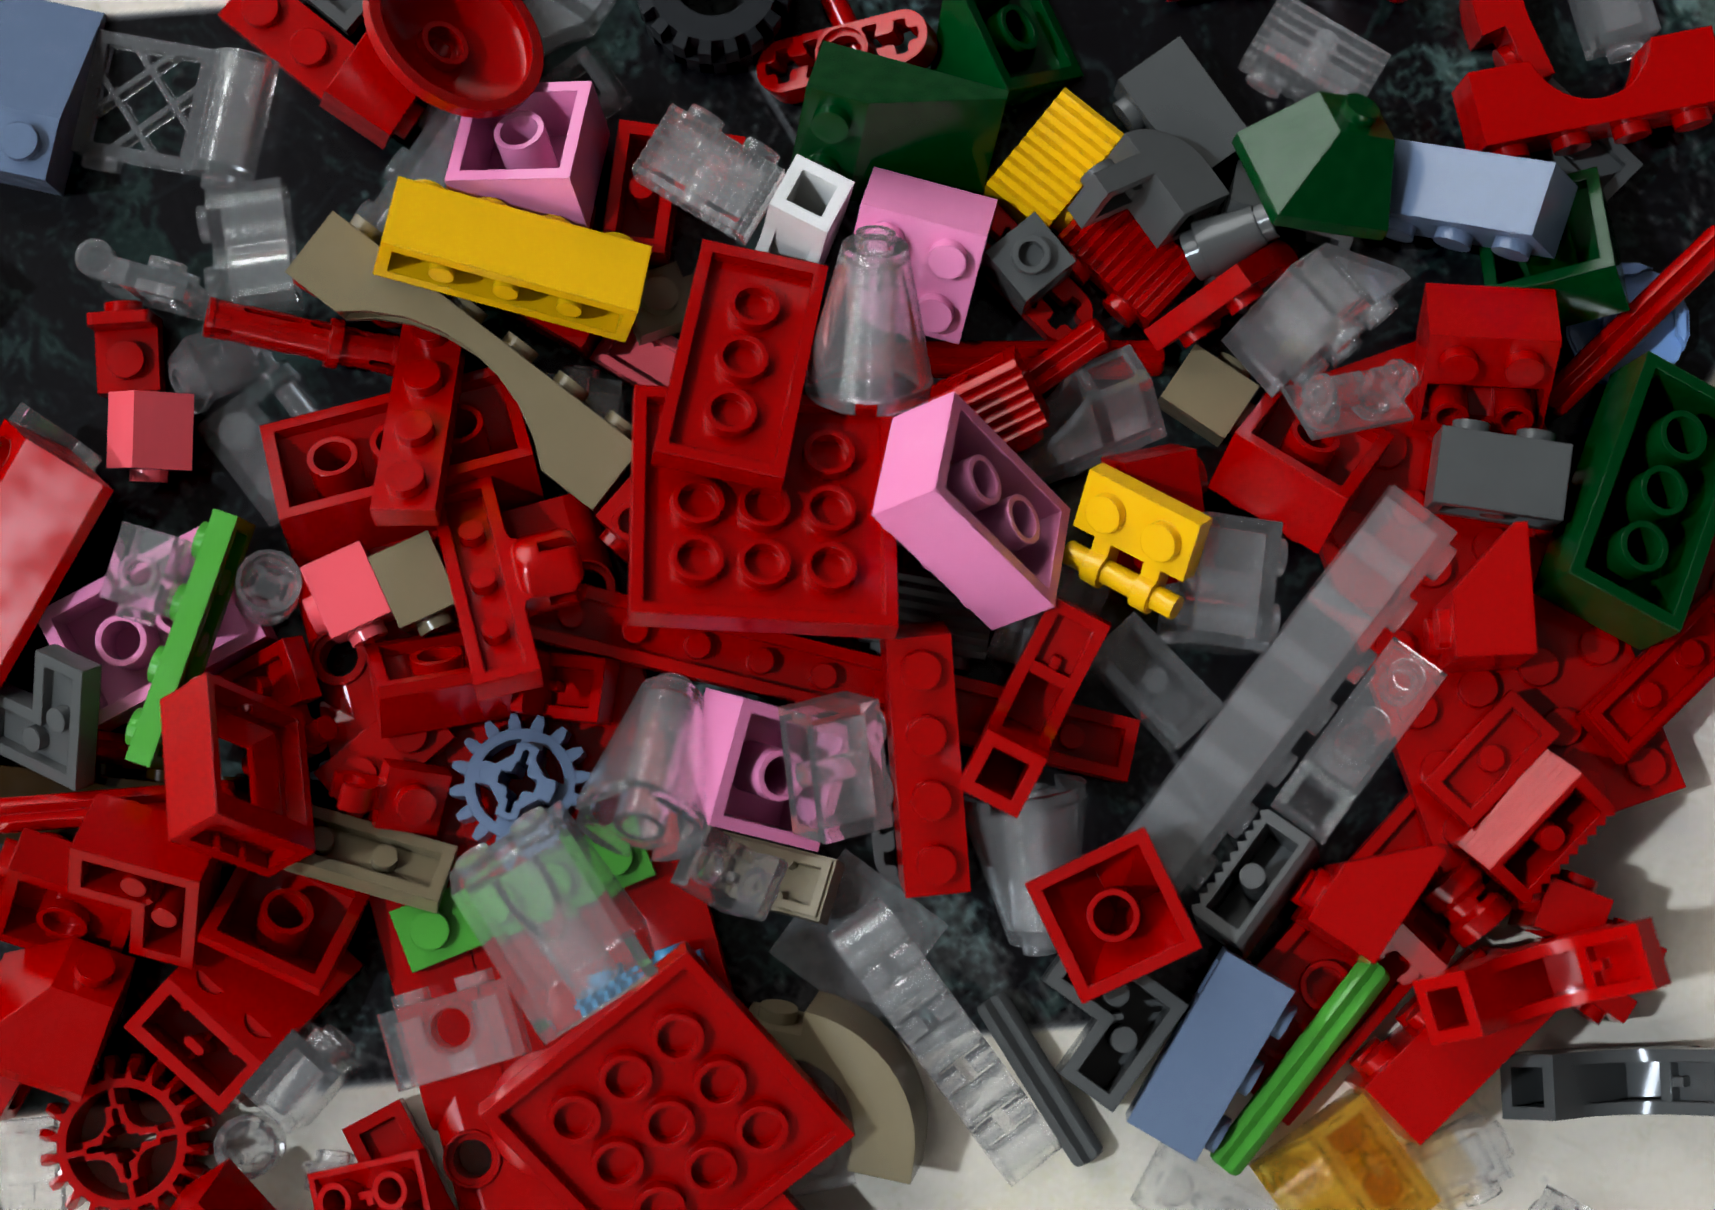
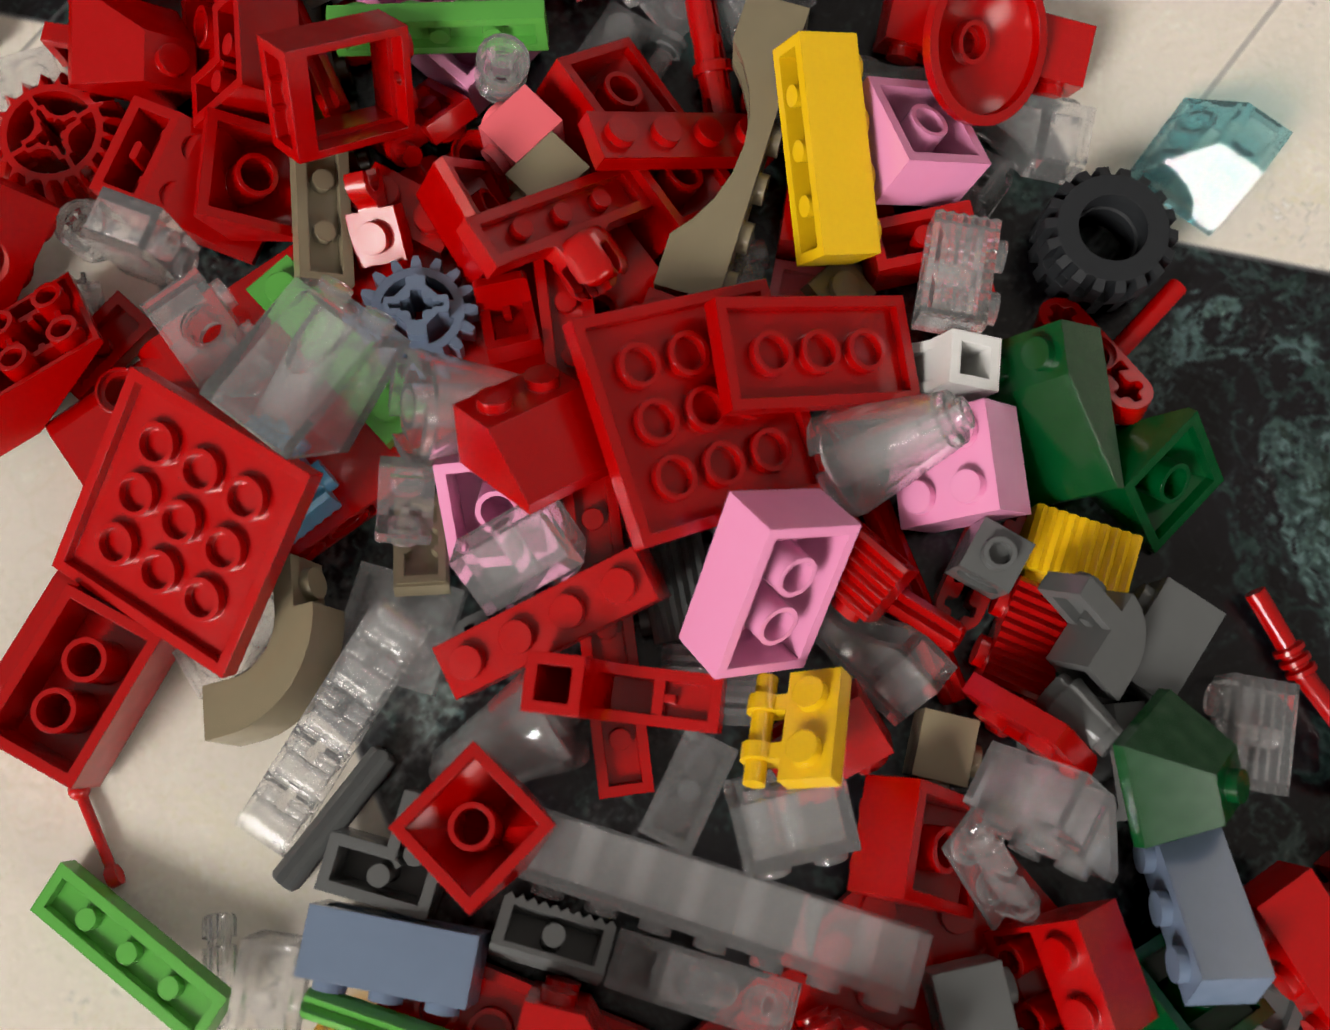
camera: 70 degrees right, 5 degrees down
(729, 703) = (530, 437): none -> red slope

